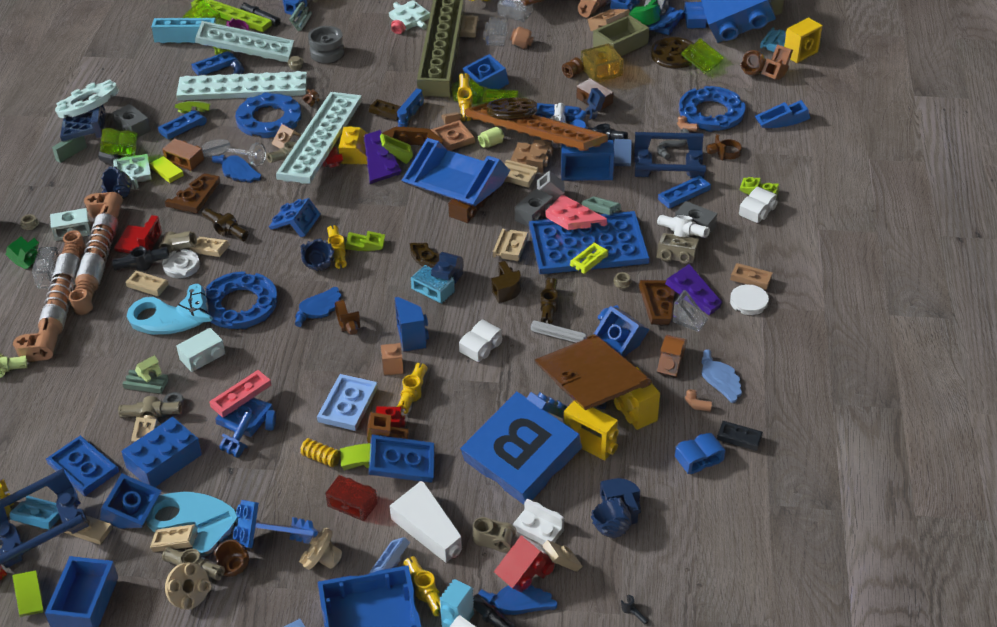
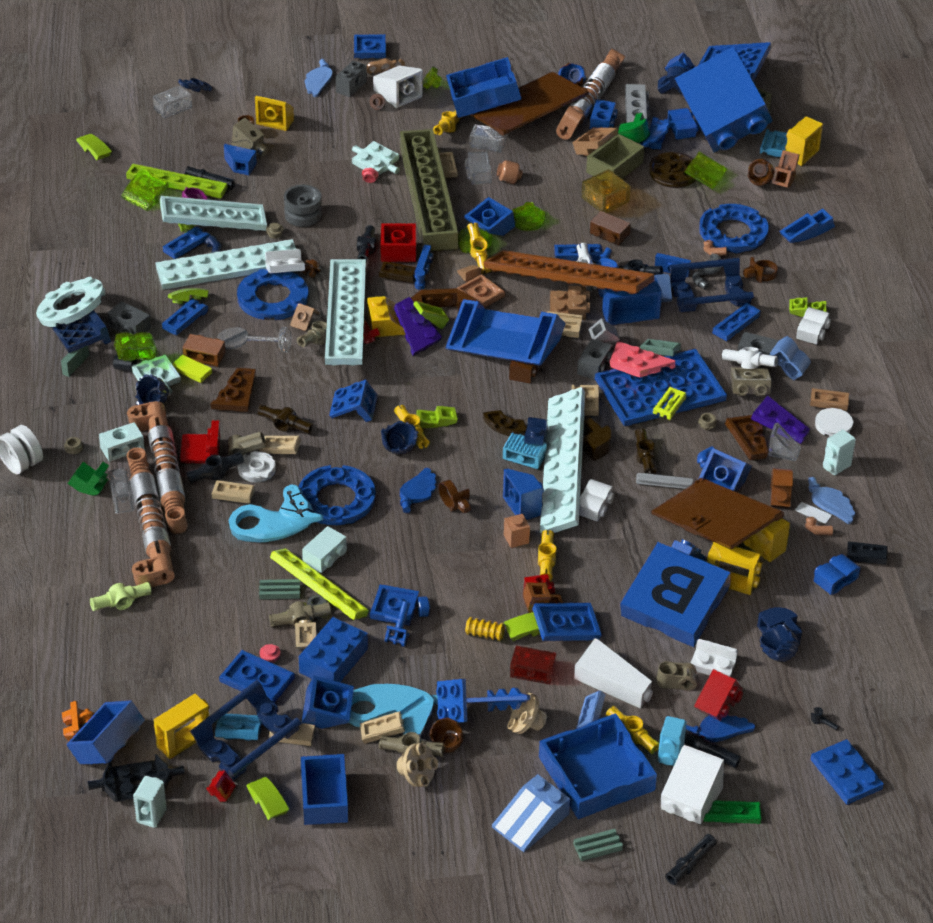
camera: 15 degrees left, 0 degrees up
(105, 443) = (270, 653): none -> coral plate
(147, 366) = (281, 574): yellowish green tile -> none
(177, 29) = (132, 207): medium azure brick -> none
(183, 383) = (319, 584): none -> neon yellow tile
(237, 168) = (267, 357): blue animal -> none
(240, 393) = (386, 585): coral plate -> none
(287, 87) = (284, 261): none -> white bracket
(305, 18) = (257, 174): sand green tile -> none
(347, 402) = (489, 578): light blue plate -> none
(369, 82) = (366, 243): none -> black pin
(395, 84) = (398, 242): none -> red brick
(463, 300) = (563, 461): none -> light aqua plate
(491, 137) = (521, 289): yellowish green brick -> none
(494, 94) = (513, 242): clear neon green slope -> none
(512, 108) = (536, 255): dark brown wedge -> none
(524, 77) = (528, 217): none -> clear neon green tile
(562, 555) = (748, 682): tan plate -> none
(573, 67) = (576, 200): reddish brown wheel -> none
(595, 102) = (617, 236): dark blue plate -> none
(632, 127) = (667, 260): none -> blue plate
(698, 385) = (813, 512): none -> white sticker
(723, 231) = (790, 358): none -> medium blue brick
(740, 328) = (839, 452): none -> light aqua brick

